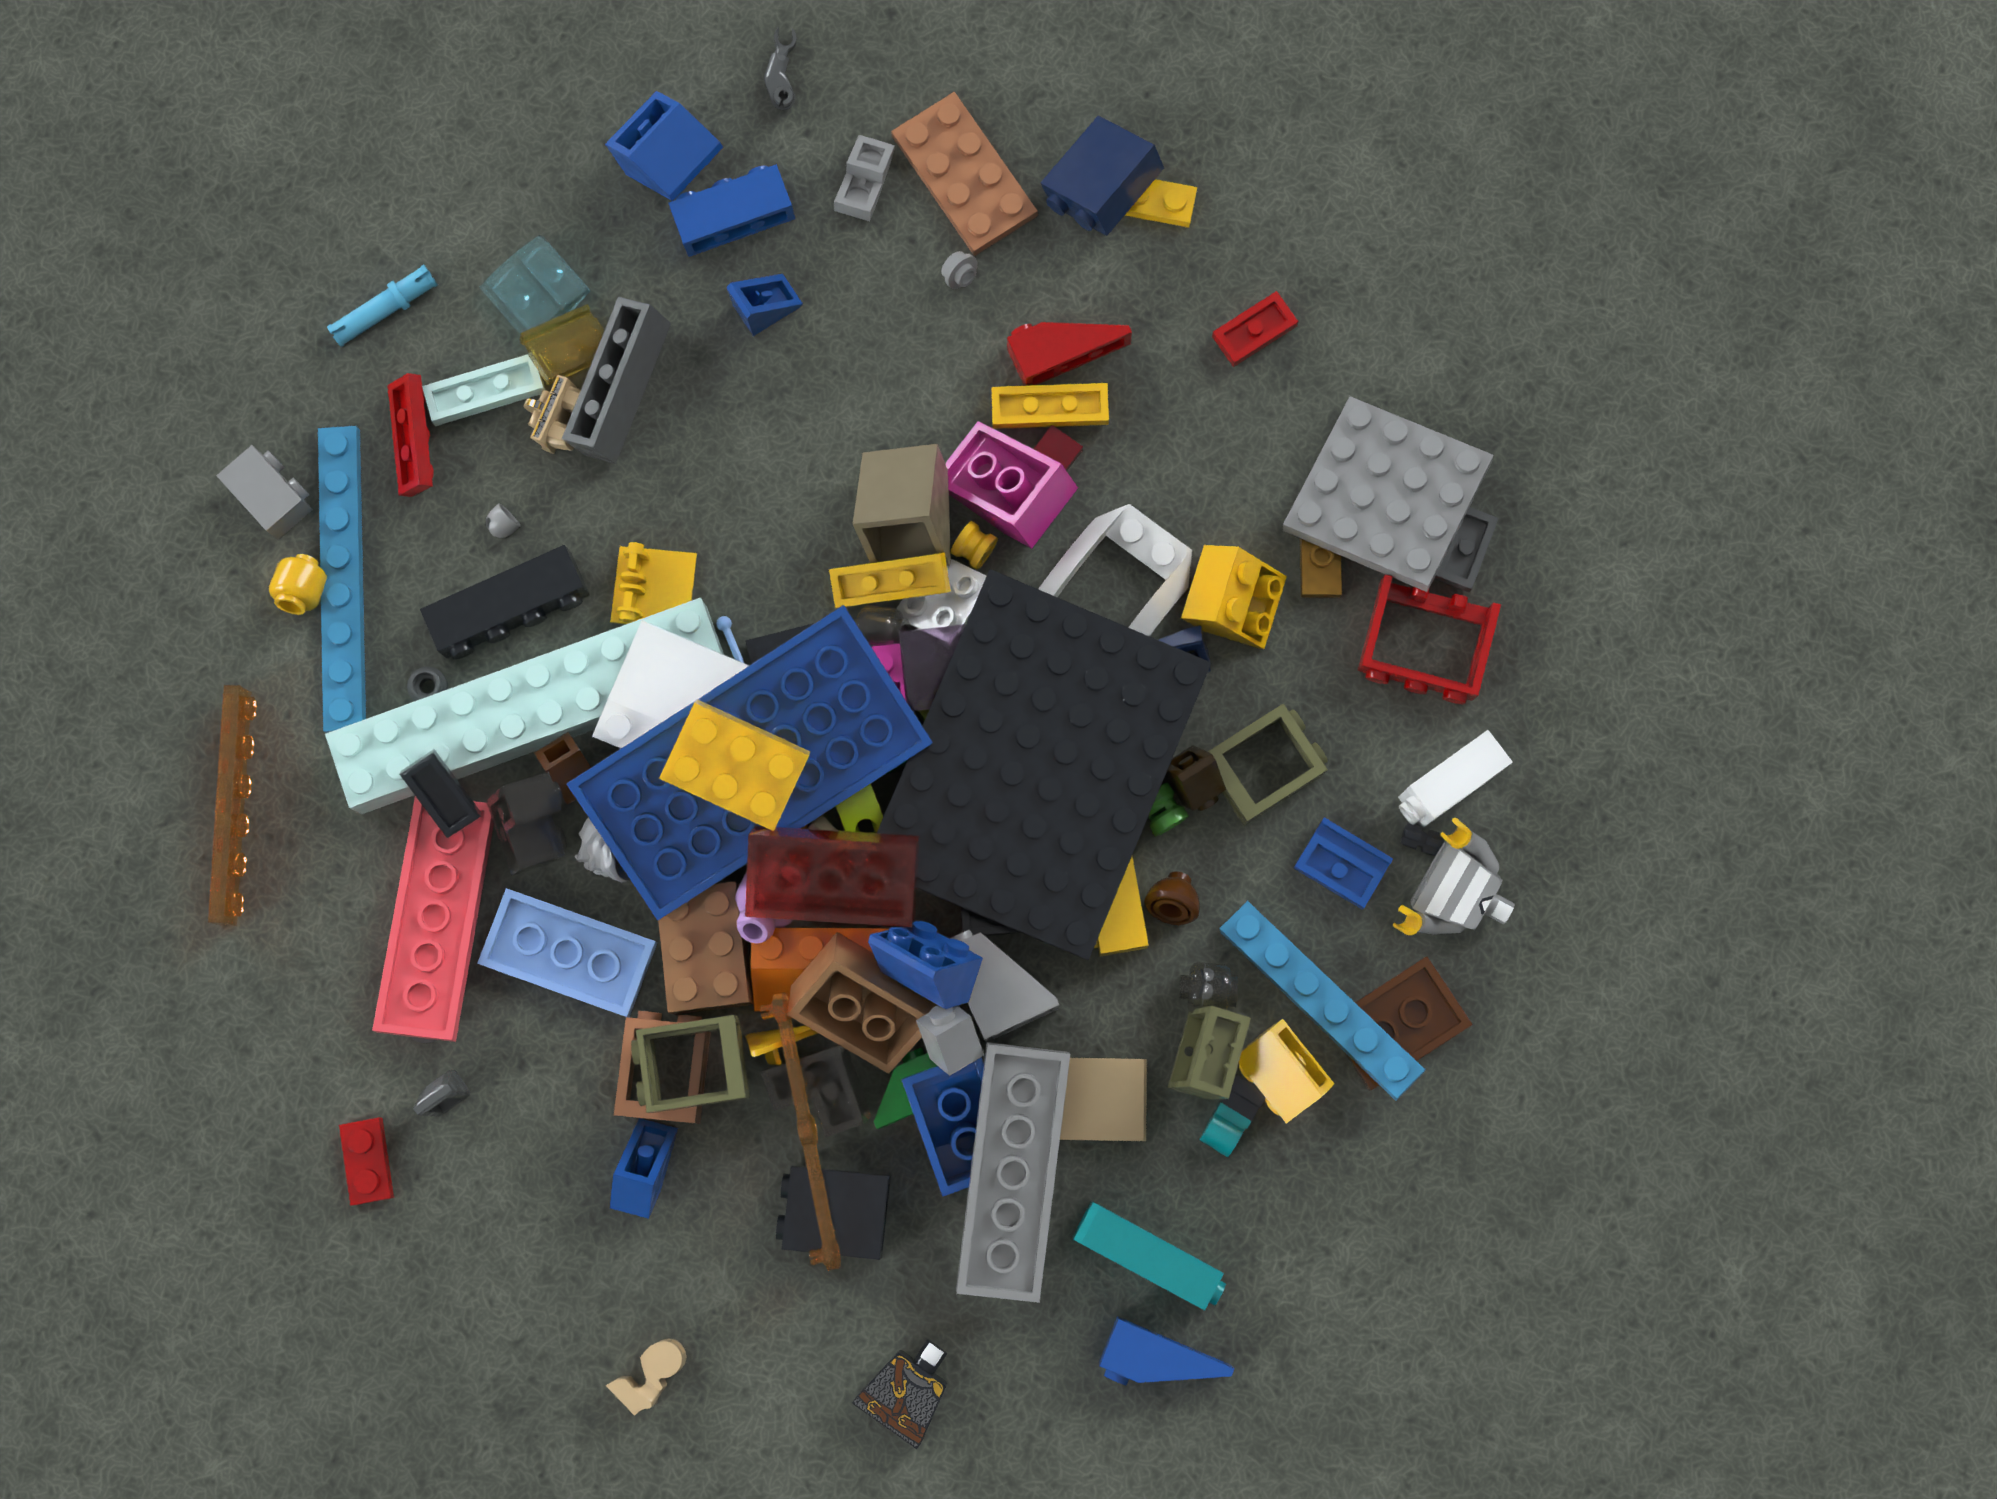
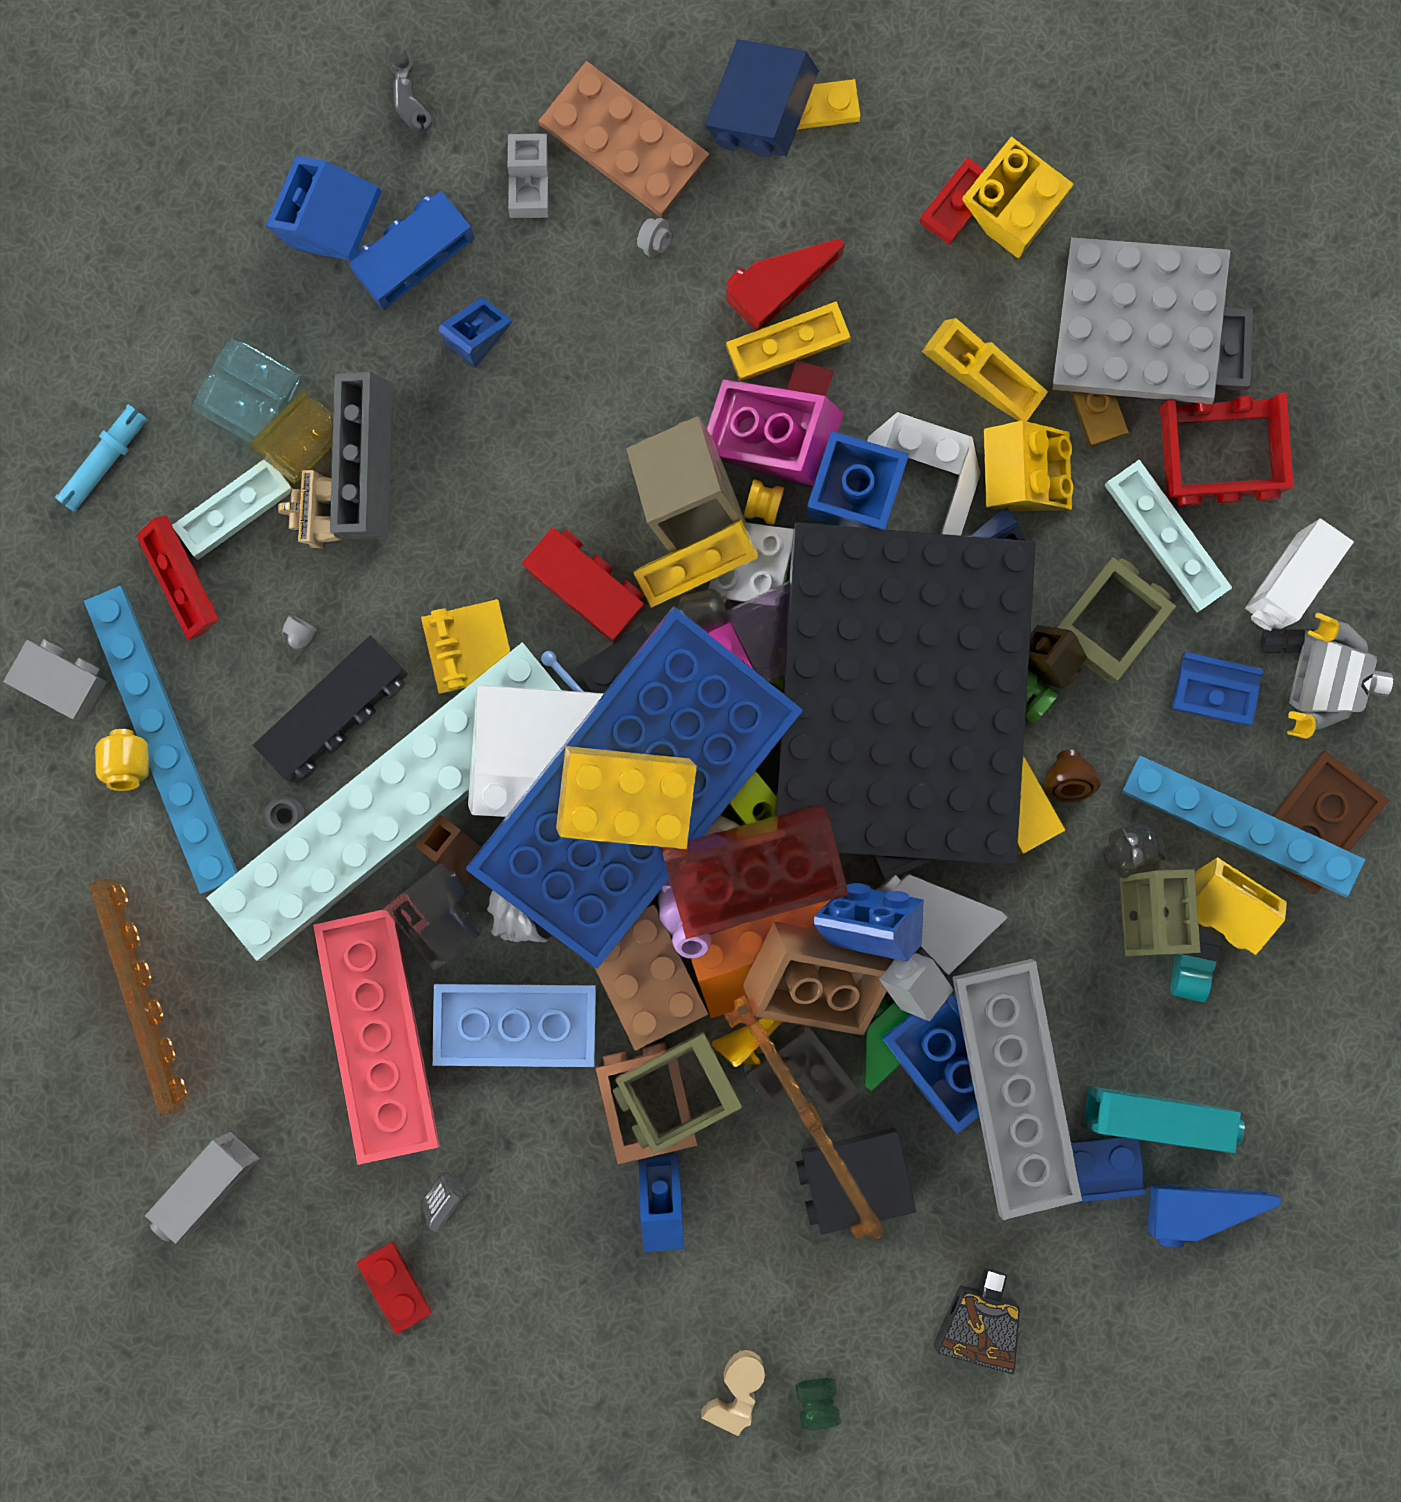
camera: 25 degrees left, 5 degrees up
(221, 1001) = (201, 1188): none -> light grey brick
(440, 793) = (340, 917): black tile -> none
(722, 1413) = (818, 1403): none -> clear green wheel
(780, 565) = (584, 584): none -> red brick
(1060, 552) = (856, 483): none -> blue slope
(1078, 1285) = (1108, 1168): none -> blue plate
(1105, 1100) = (1076, 987): tan slope -> none
(1225, 492) = (984, 370): none -> yellow slope
(1309, 342) = (1016, 197): none -> yellow slope
(1345, 703) = (1168, 536): none -> light aqua plate

